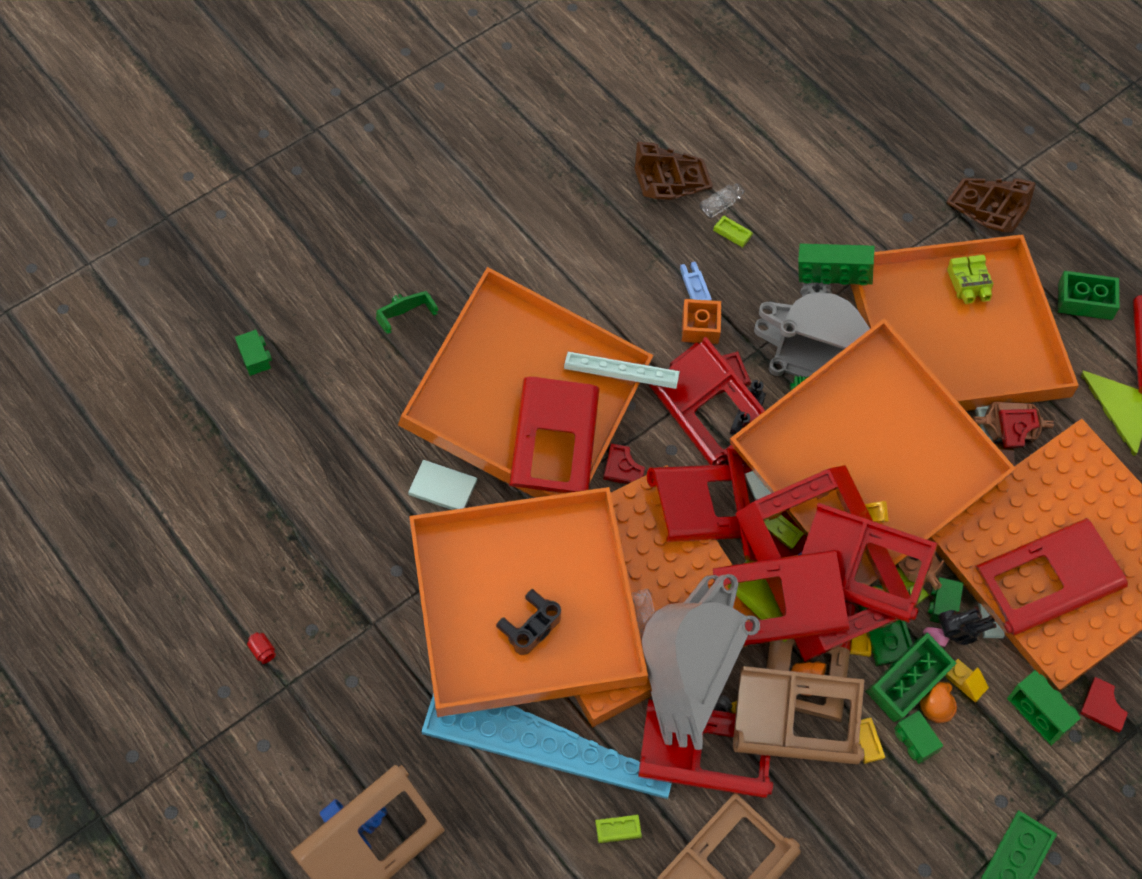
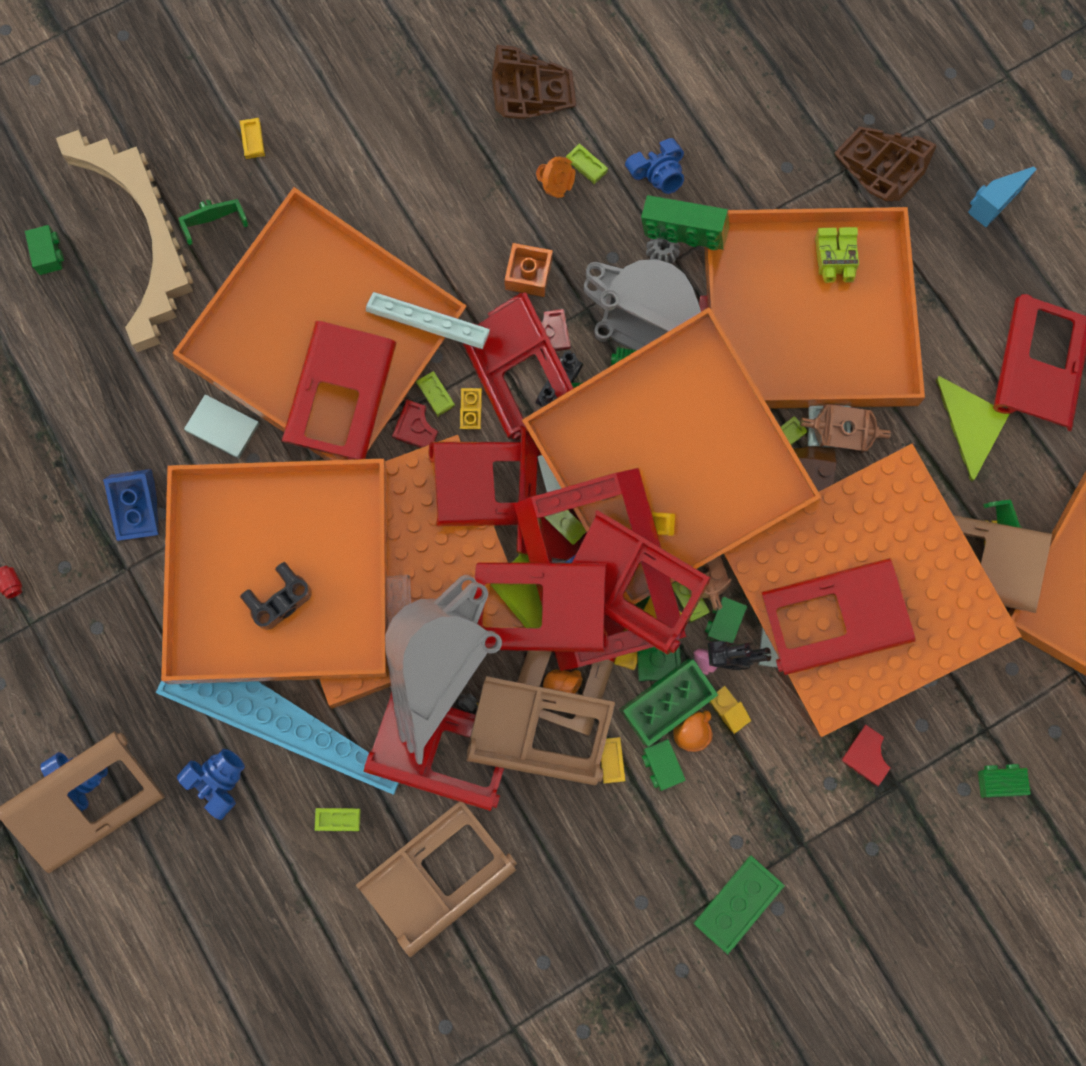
camera: 10 degrees right, 15 degrees up
(324, 281) = (168, 273): none -> tan arch
(371, 564) = (132, 504): none -> blue slope
(428, 241) = (252, 138): none -> yellow tile
(488, 813) = (213, 779): none -> blue beam
(636, 435) = (435, 393): none -> lime plate
(671, 444) = (471, 408): none -> yellow slope
(695, 283) = (533, 224): light blue hinge -> none
(711, 242) = (556, 176): none -> orange tile
(722, 200) = (583, 123): clear hinge -> none
(801, 229) = (662, 169): none -> blue beam
(1016, 425) = (845, 434): red tile -> none
(1043, 707) = (801, 753): green brick -> none
(1088, 295) = (965, 287): green brick -> none
(1096, 218) = (997, 195): none -> dark azure slope

